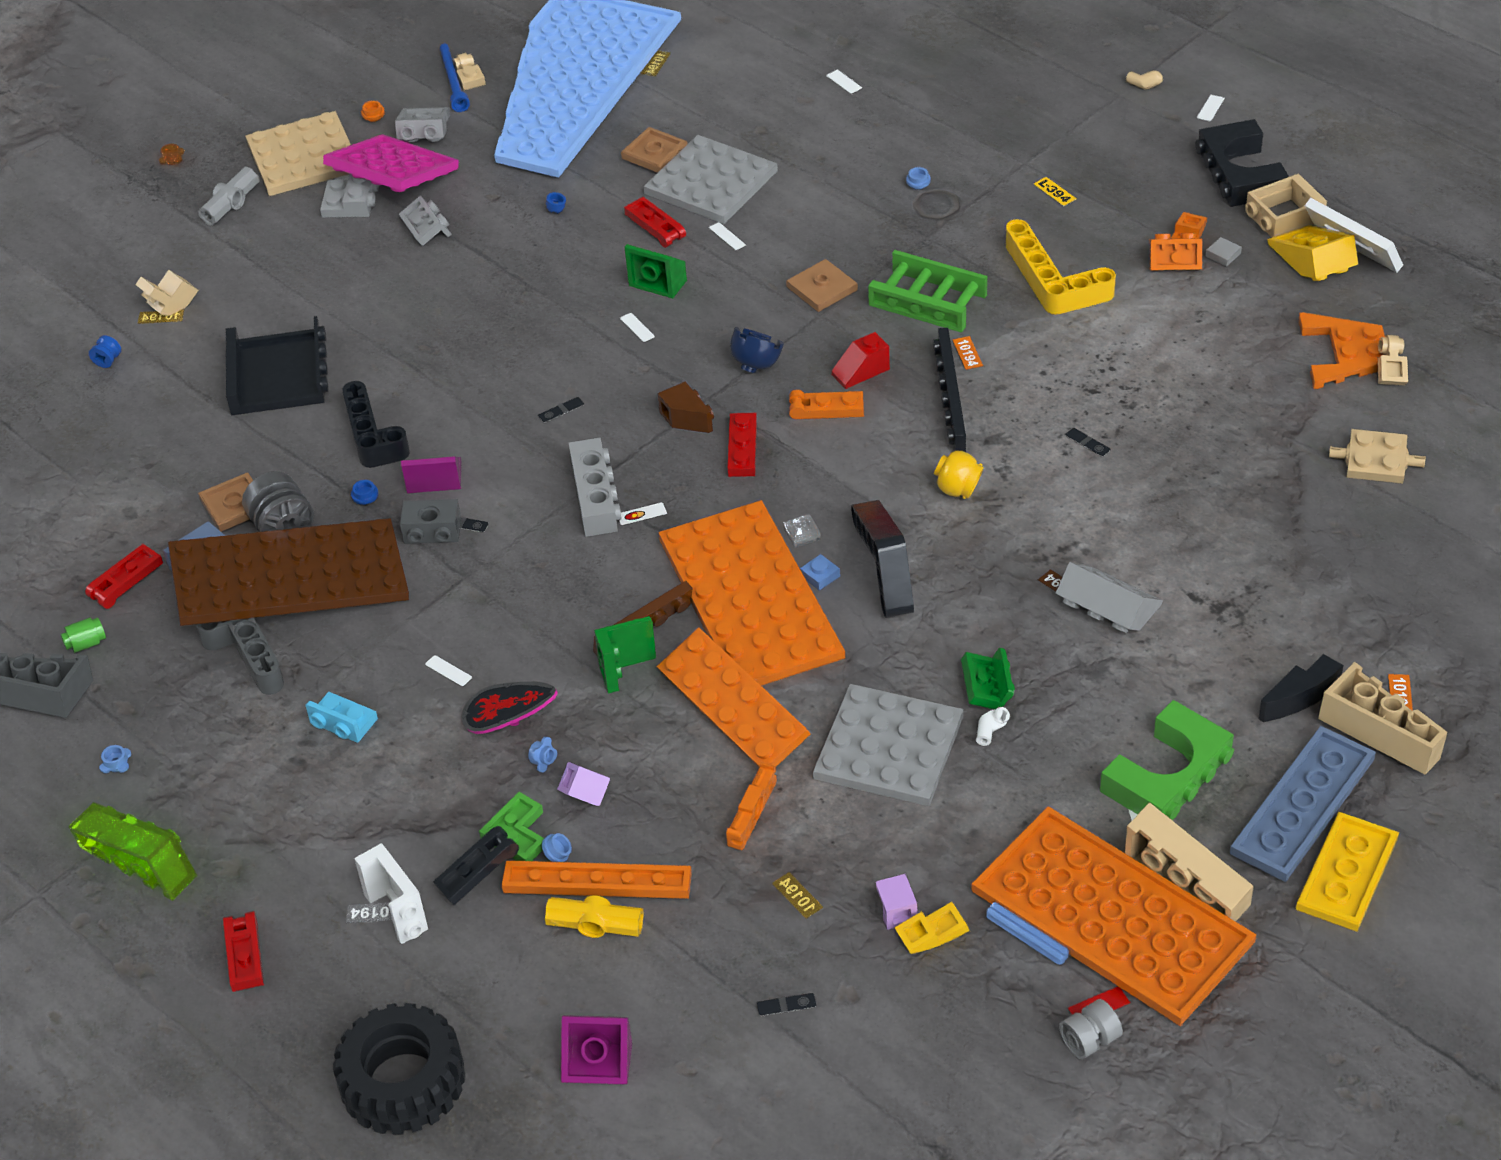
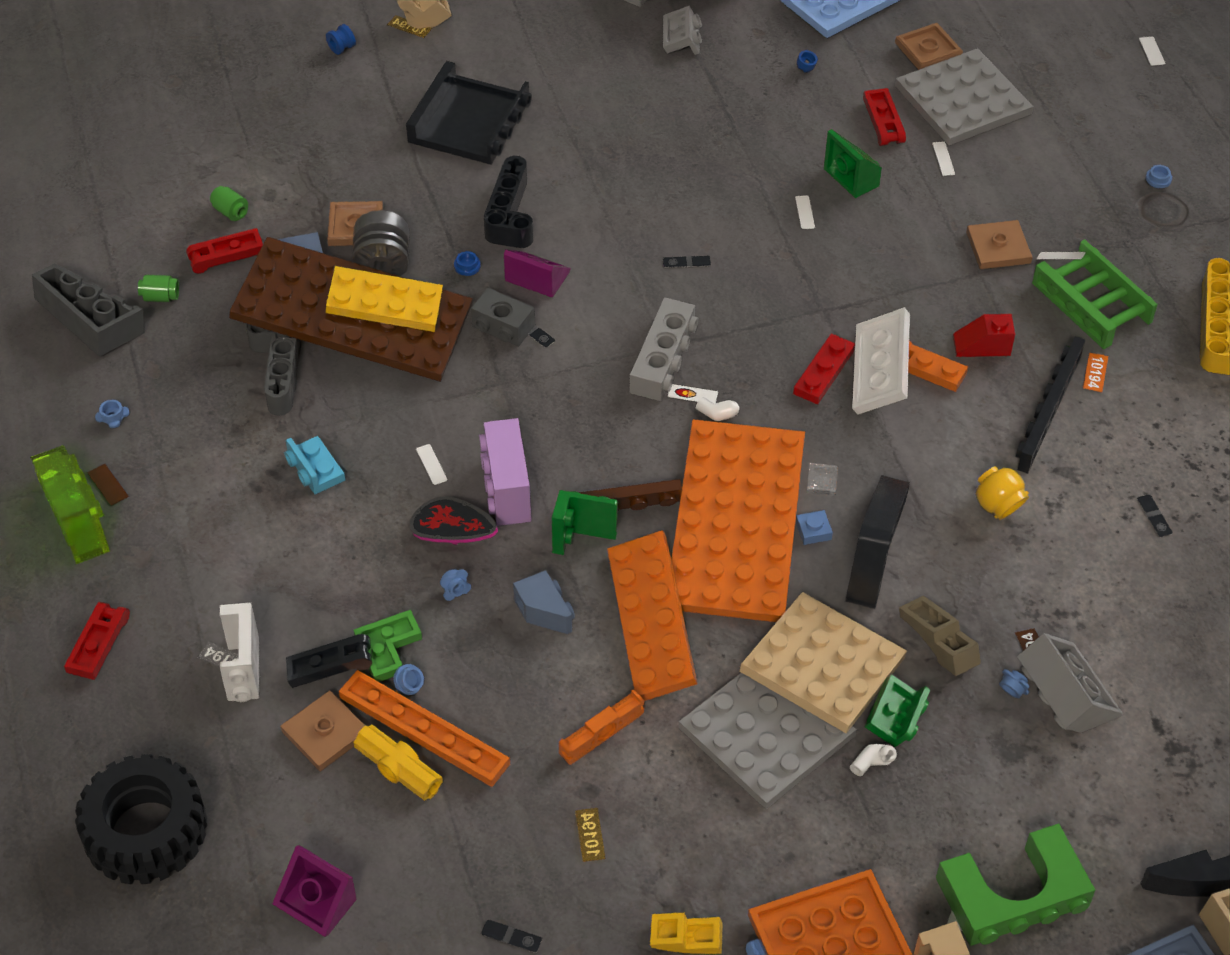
camera: 25 degrees right, 5 degrees up
(99, 534) = (229, 203): none -> bright green brick
(156, 818) = (108, 484): none -> reddish brown sticker
(316, 548) = (384, 299): none -> yellow plate
(508, 924) = (323, 730): none -> medium nougat plate
(528, 640) = (507, 472): none -> lavender brick
(583, 784) = (470, 630): lavender panel -> none
(632, 734) = (542, 603): none -> sand blue slope
(675, 516) = (718, 411): none -> white arm
(685, 409) = (792, 310): reddish brown slope -> none
(754, 349) = (891, 280): dark blue cylinder -> none
(790, 415) = (881, 361): none -> white plate
(882, 271) = (1061, 255): none -> white sticker
(897, 900) = (668, 888): lavender panel -> none
(902, 669) = (823, 662): none -> tan plate
(983, 603) = (942, 634): none -> dark tan slope
(1065, 615) = (1014, 683): none -> medium blue plate

